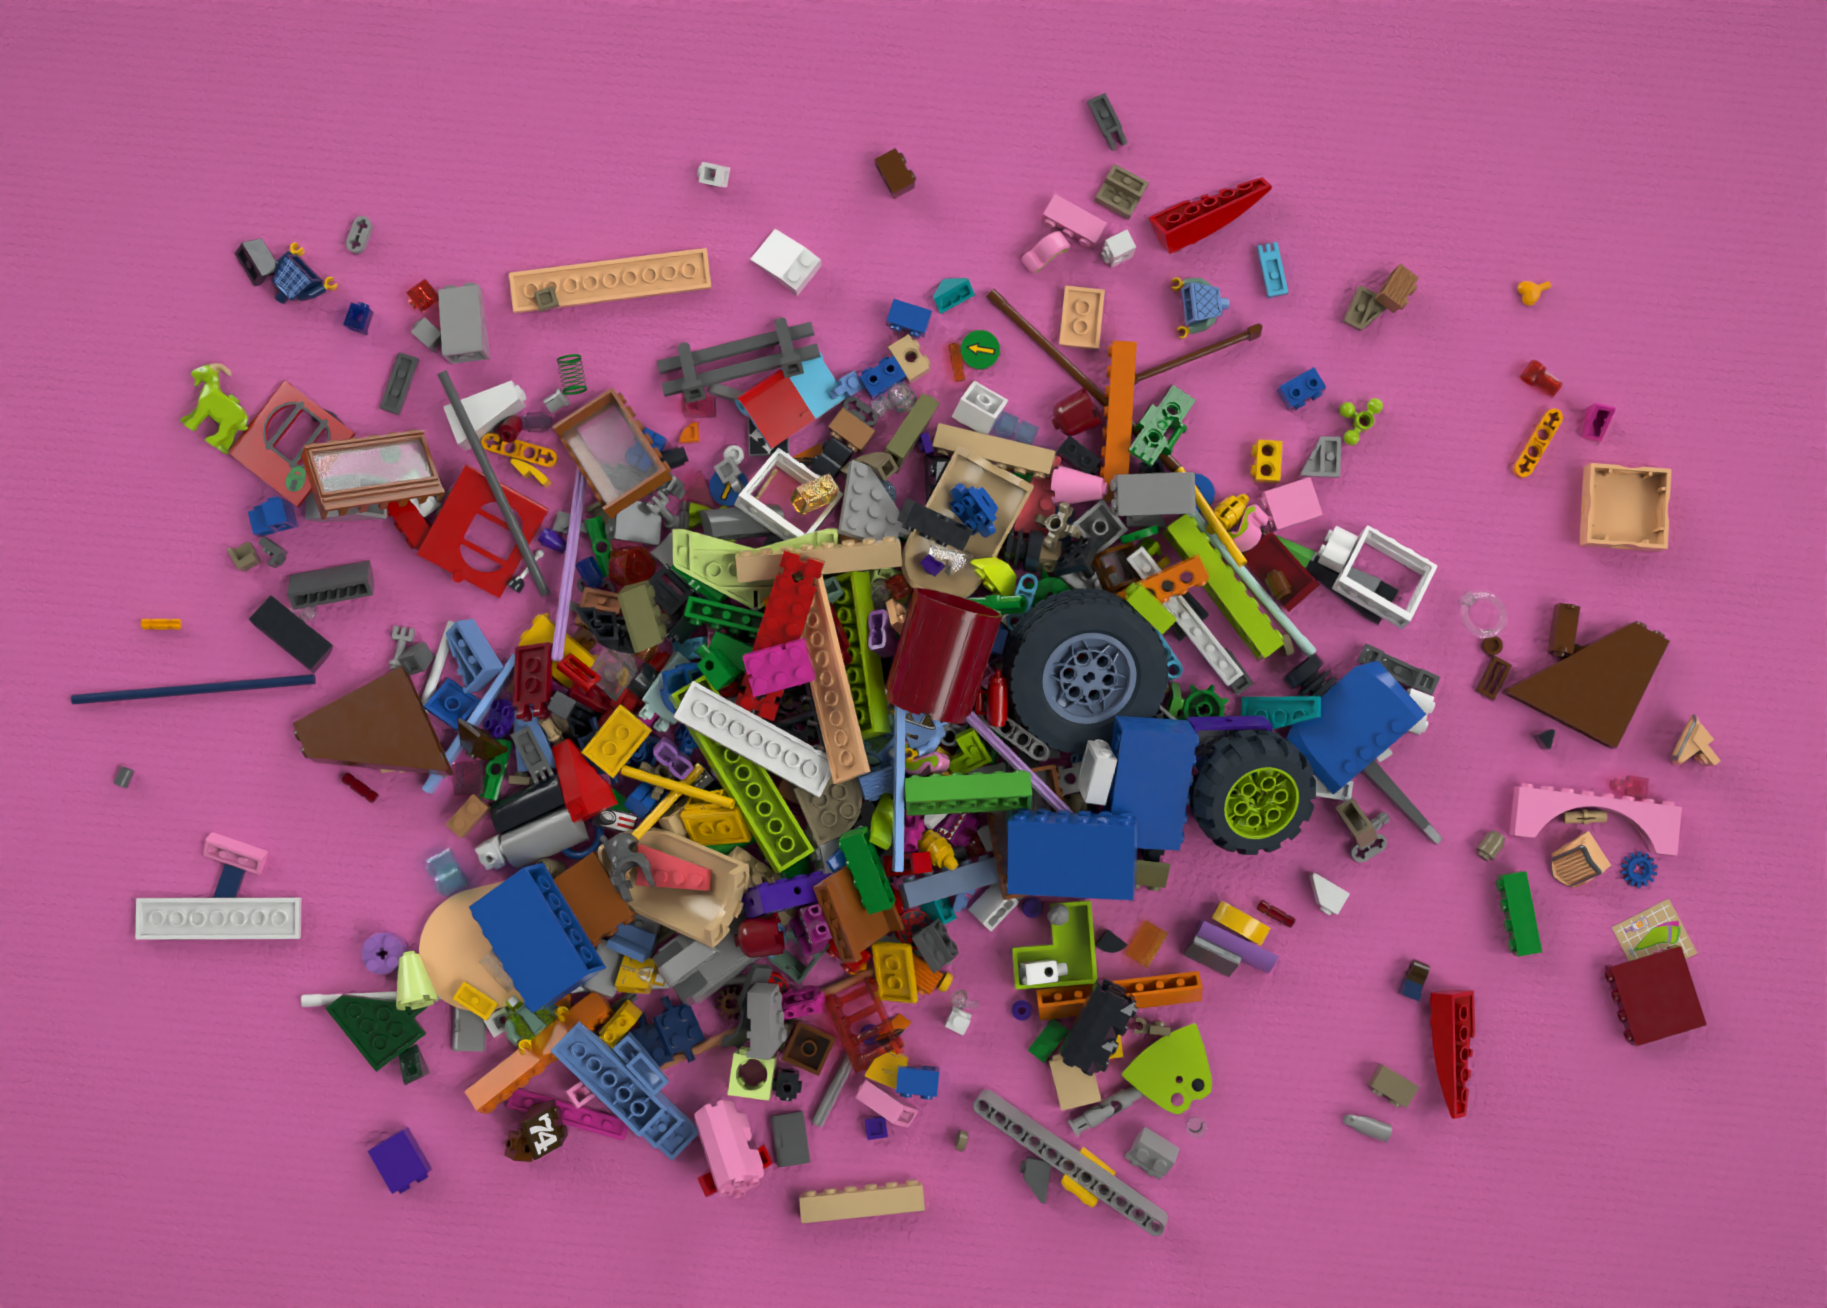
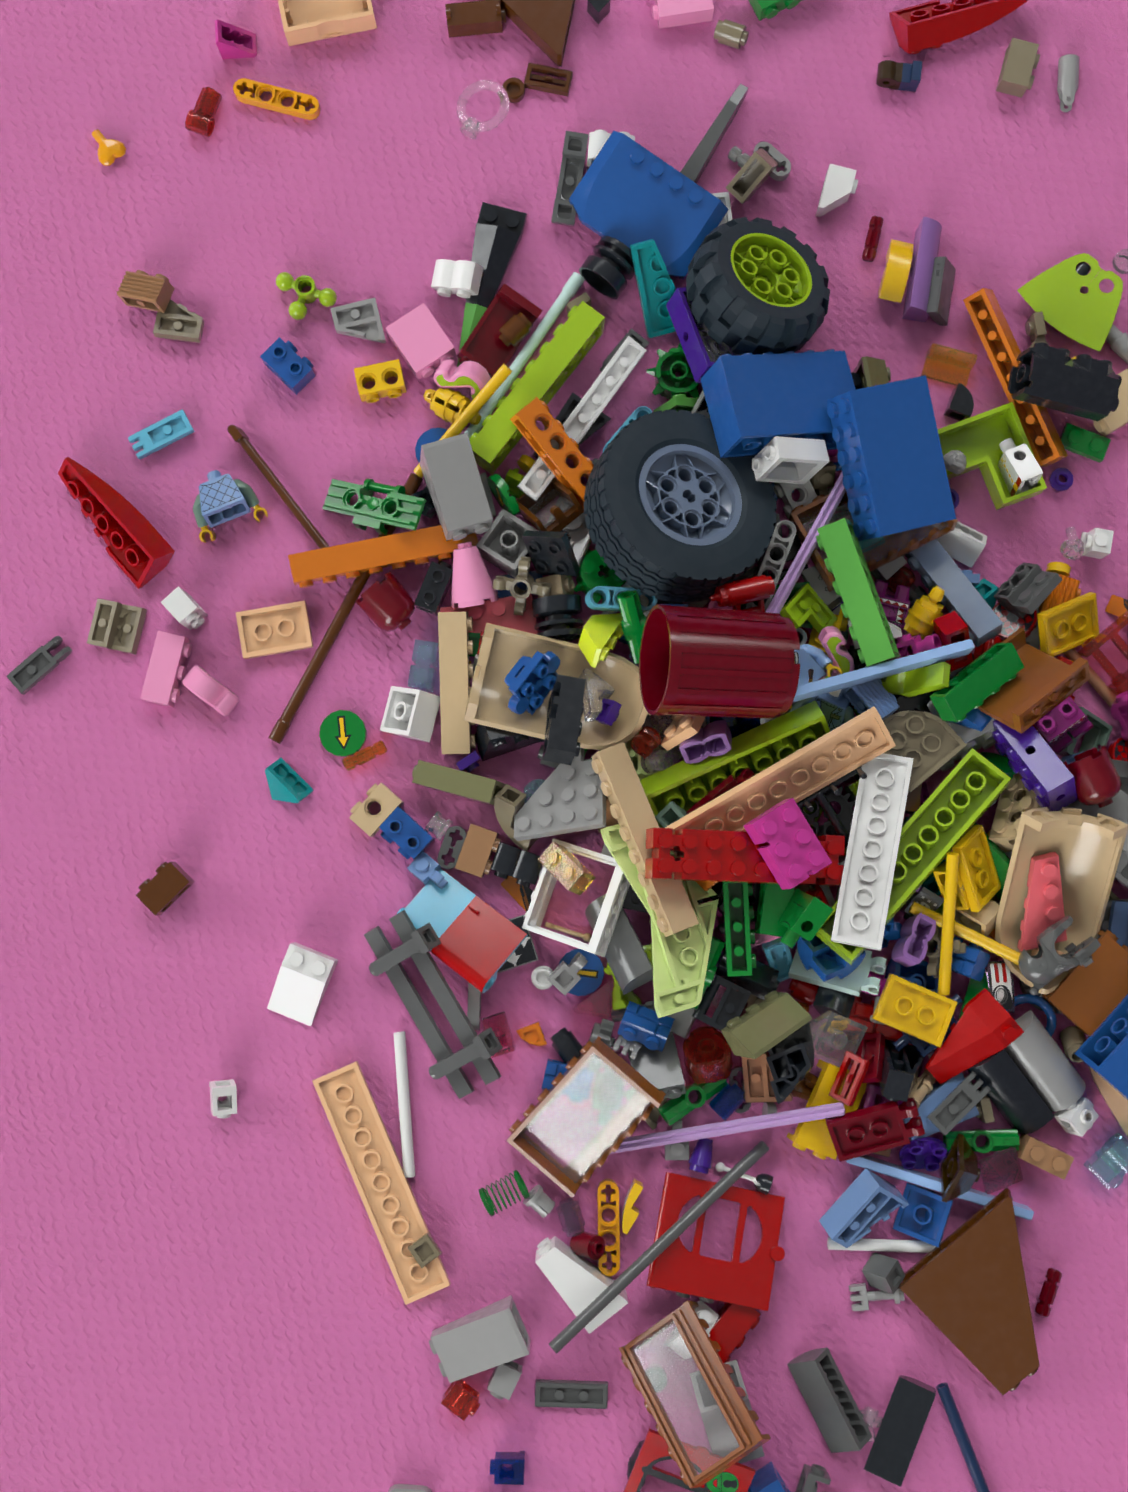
camera: 105 degrees left, 0 degrees up
(666, 316) = (404, 1104): none -> white piece
(672, 516) = (645, 1027): none -> blue brick
(901, 397) = (423, 804): clear head -> none
(908, 318) = (330, 822): blue brick -> none
(1150, 607) = (589, 451): lime brick -> none
(1373, 601) = (506, 221): white window -> none

